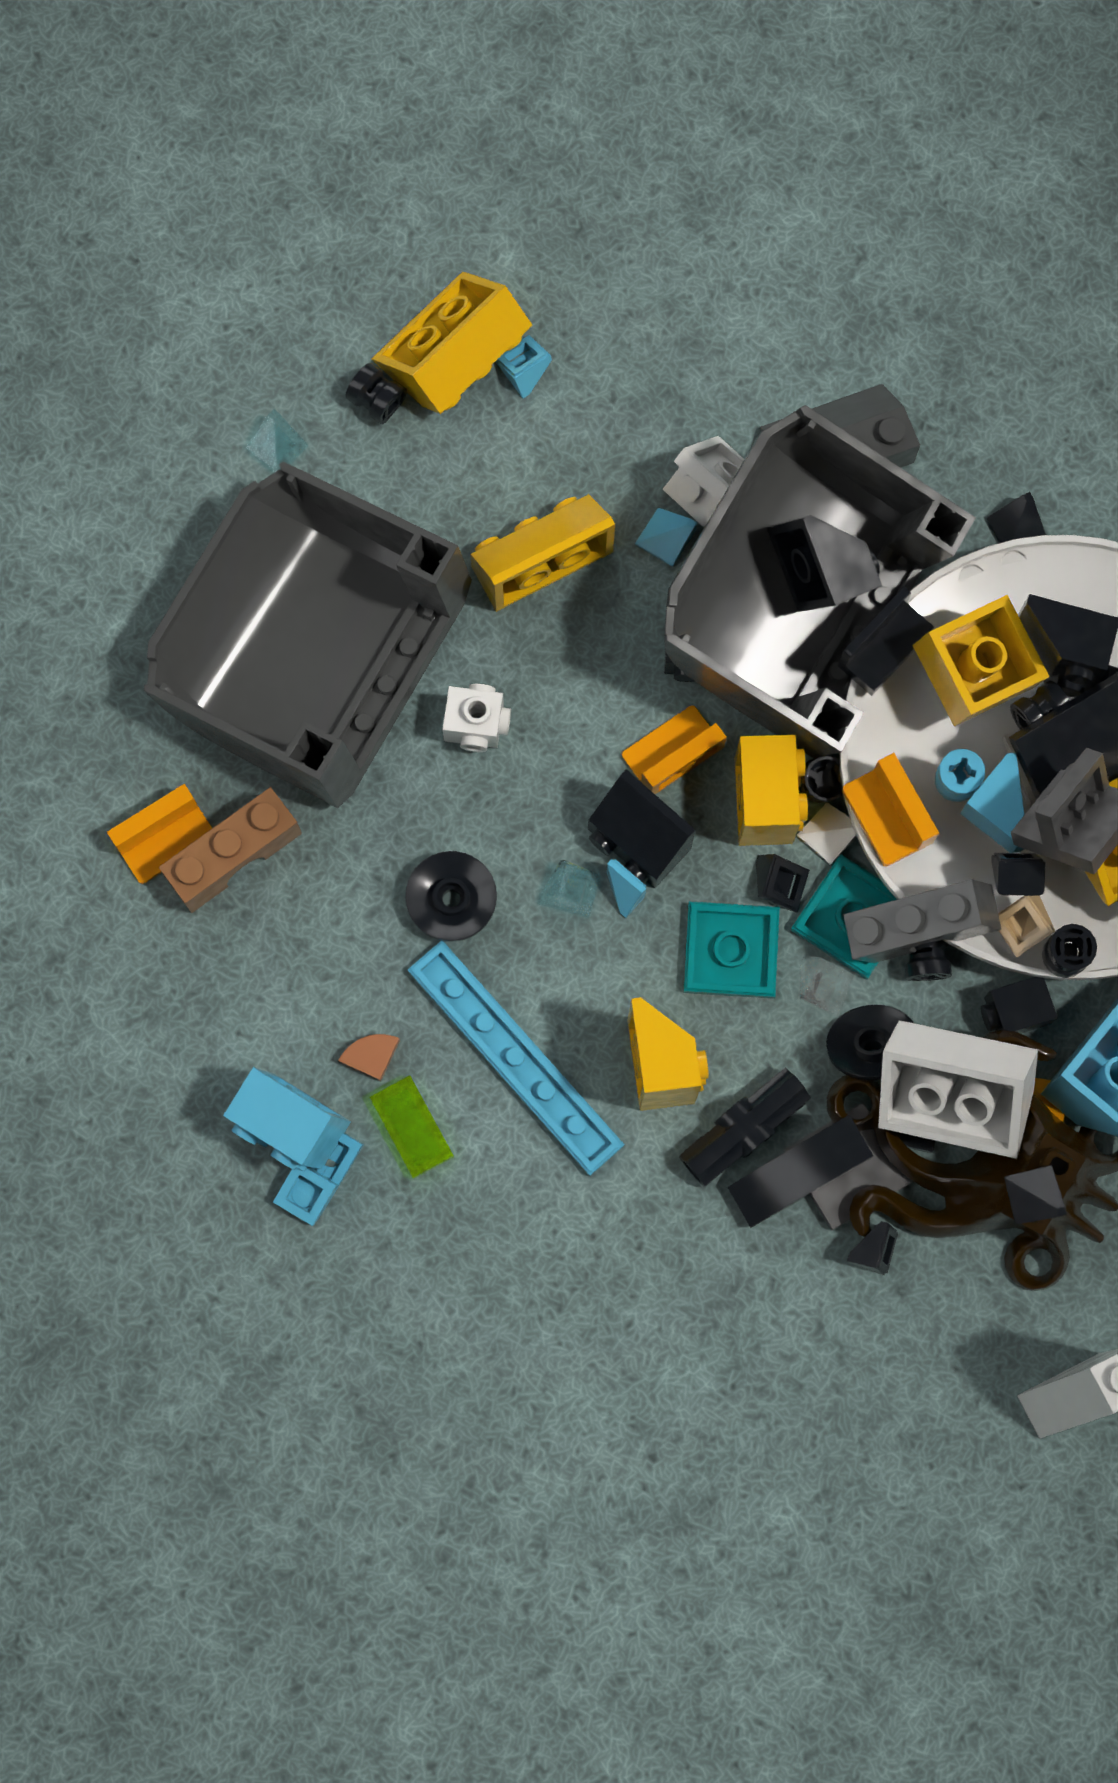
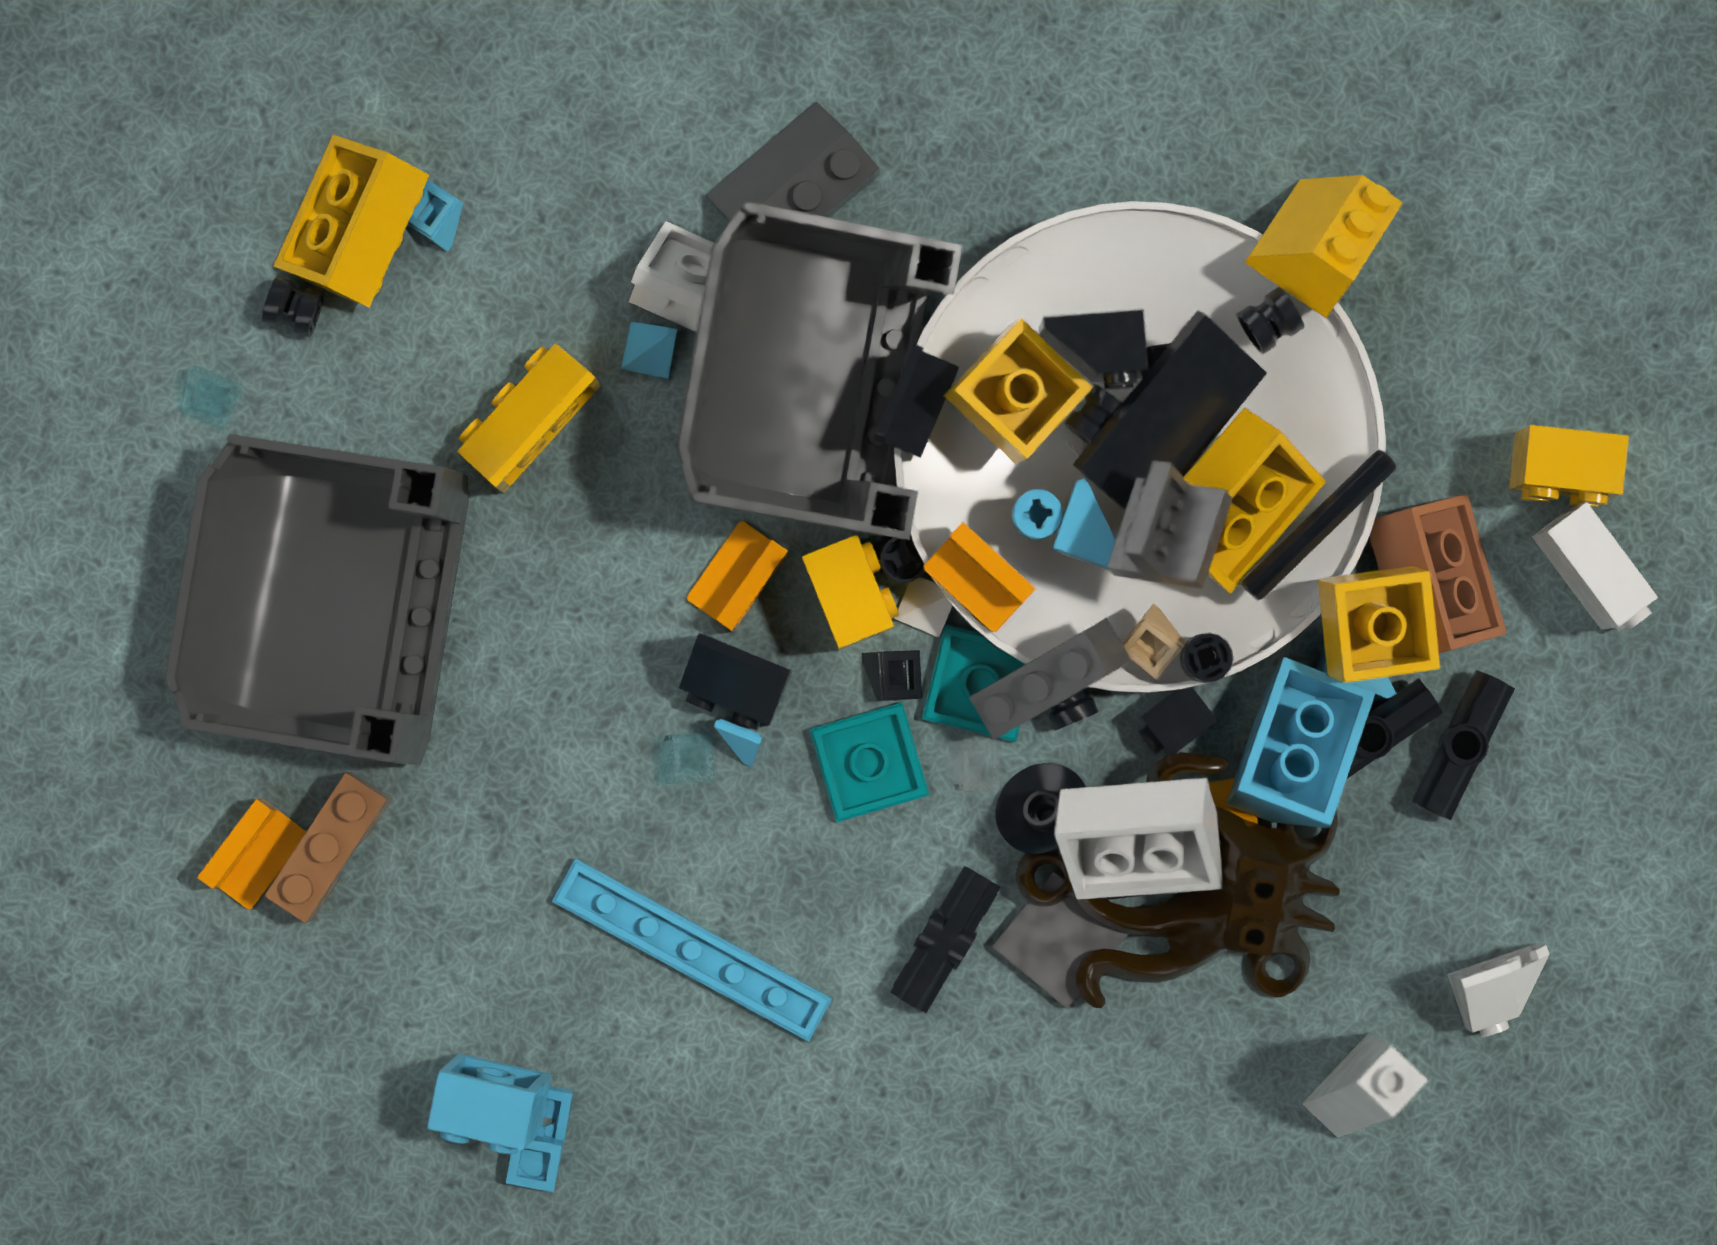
camera: 20 degrees left, 10 degrees up
(370, 1054) = (547, 1000): nougat tile -> none
(411, 1127) = (614, 1057): clear neon green tile -> none
(448, 873) = (542, 817): black dish -> none
(472, 732) = (506, 617): white brick -> none
(664, 1059) = (841, 913): yellow slope -> none
(800, 1171) = (1015, 967): black slope -> none
(823, 563) = (826, 350): black slope -> none
(875, 1249) = (1116, 1014): black slope -> none
(1017, 520) = (1008, 207): black slope -> none
(1019, 873) = (1128, 599): black slope -> none
(1034, 1195) = (1250, 928): black slope -> none

